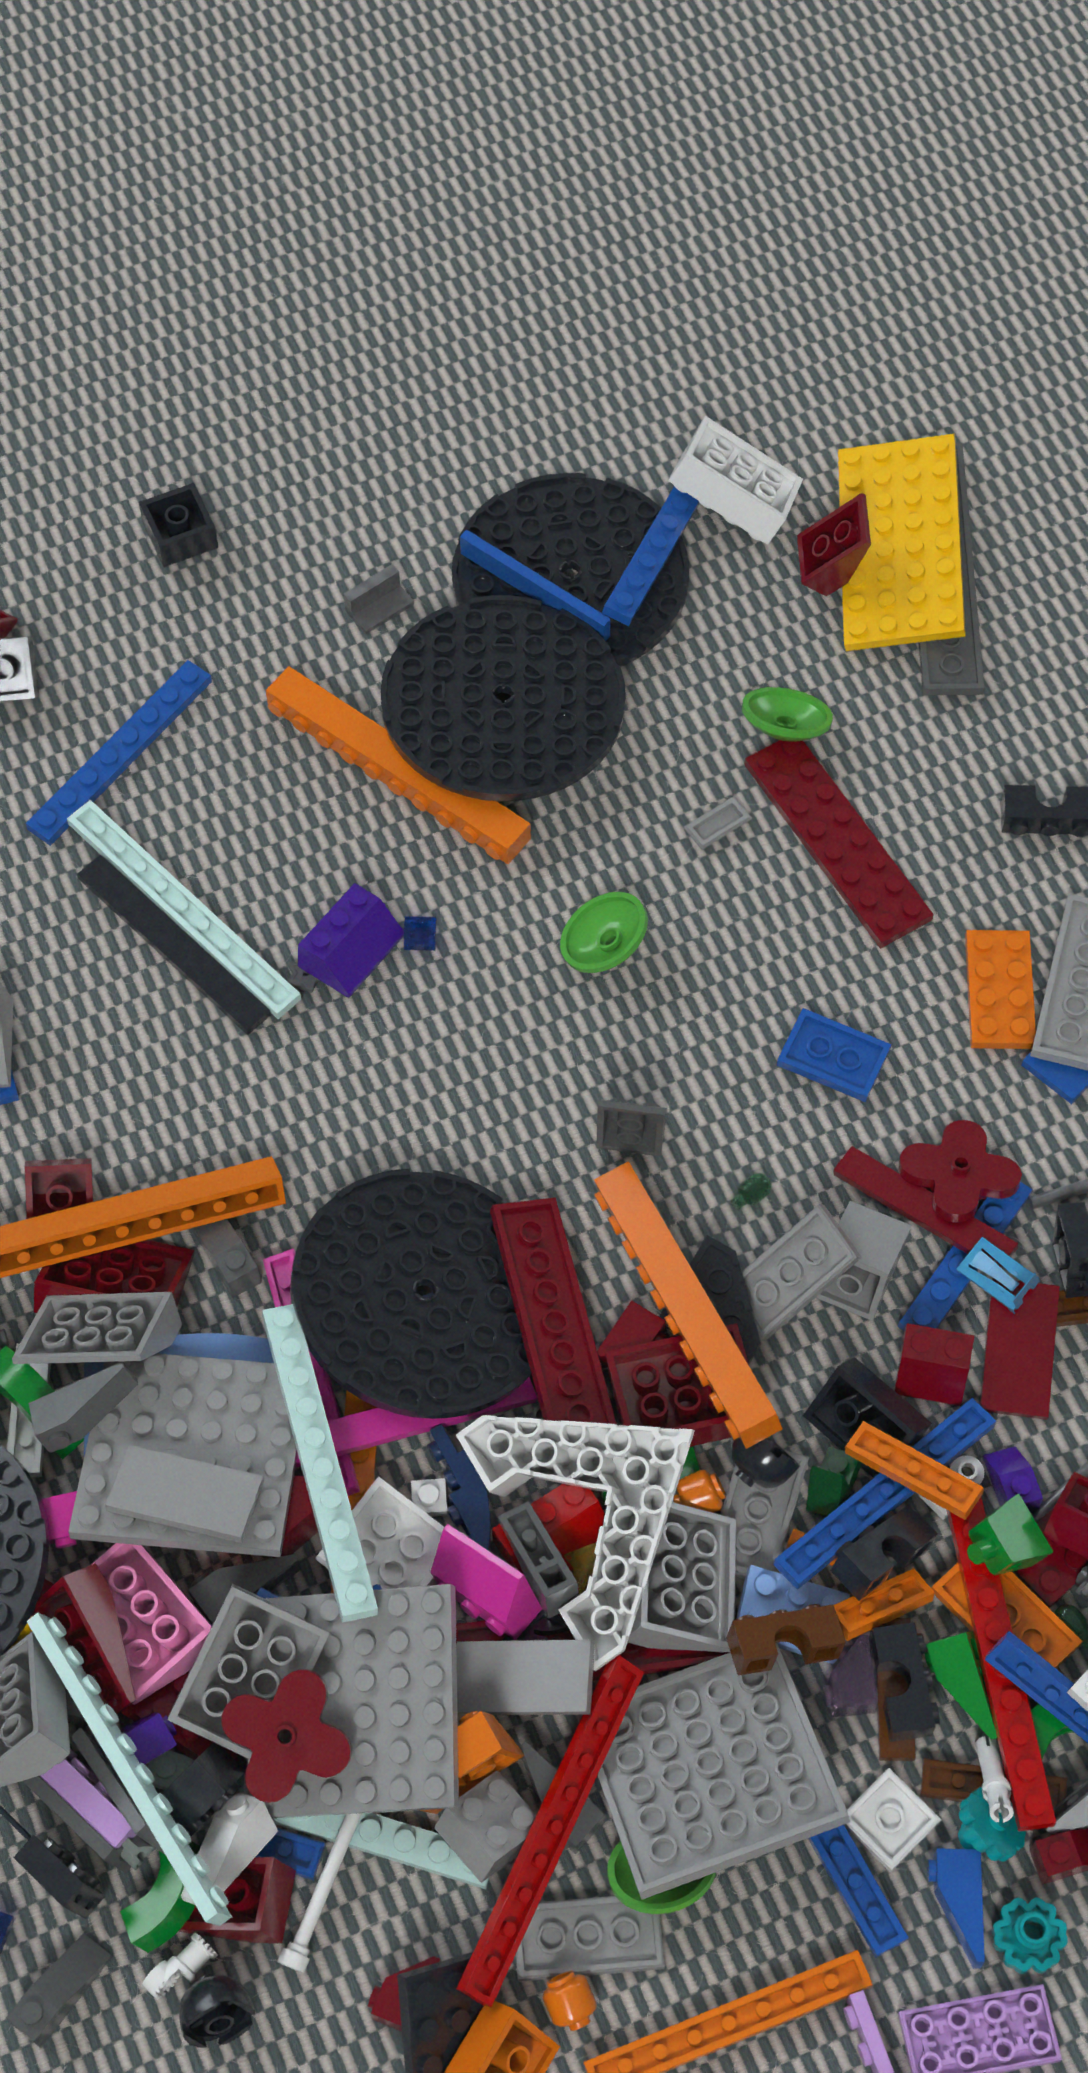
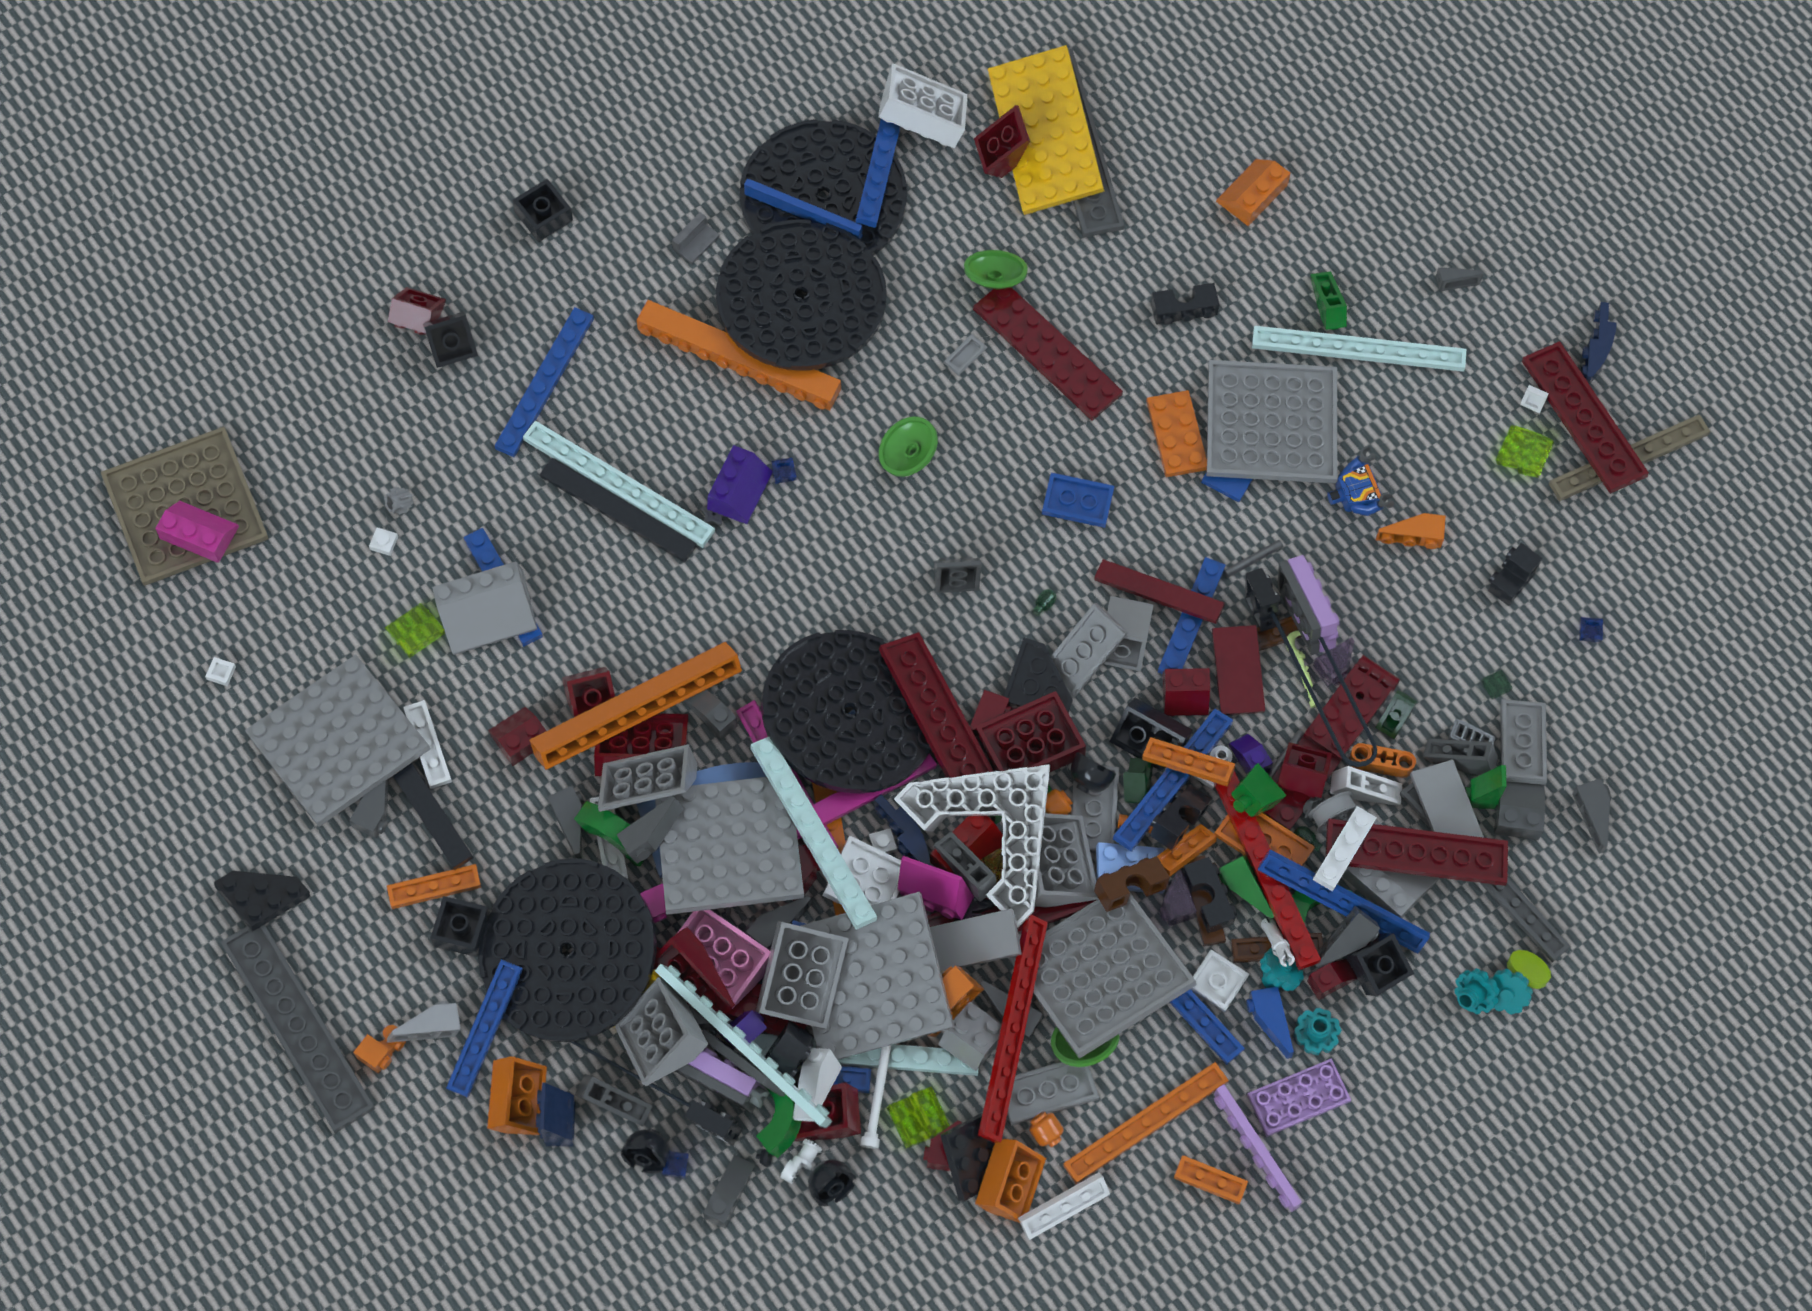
camera: 15 degrees left, 5 degrees up
(127, 1951) = (765, 1158): none -> black rock
(185, 1493) = (734, 870): light grey tile -> none
(313, 1746) = (839, 987): dark red plant -> none
(378, 1936) = (918, 1117): none -> clear neon green slope
(688, 1306) = (1021, 684): orange brick -> none
(959, 1171) = (1176, 562): dark red plant -> none
(981, 1261) = (1206, 620): dark azure piece -> none

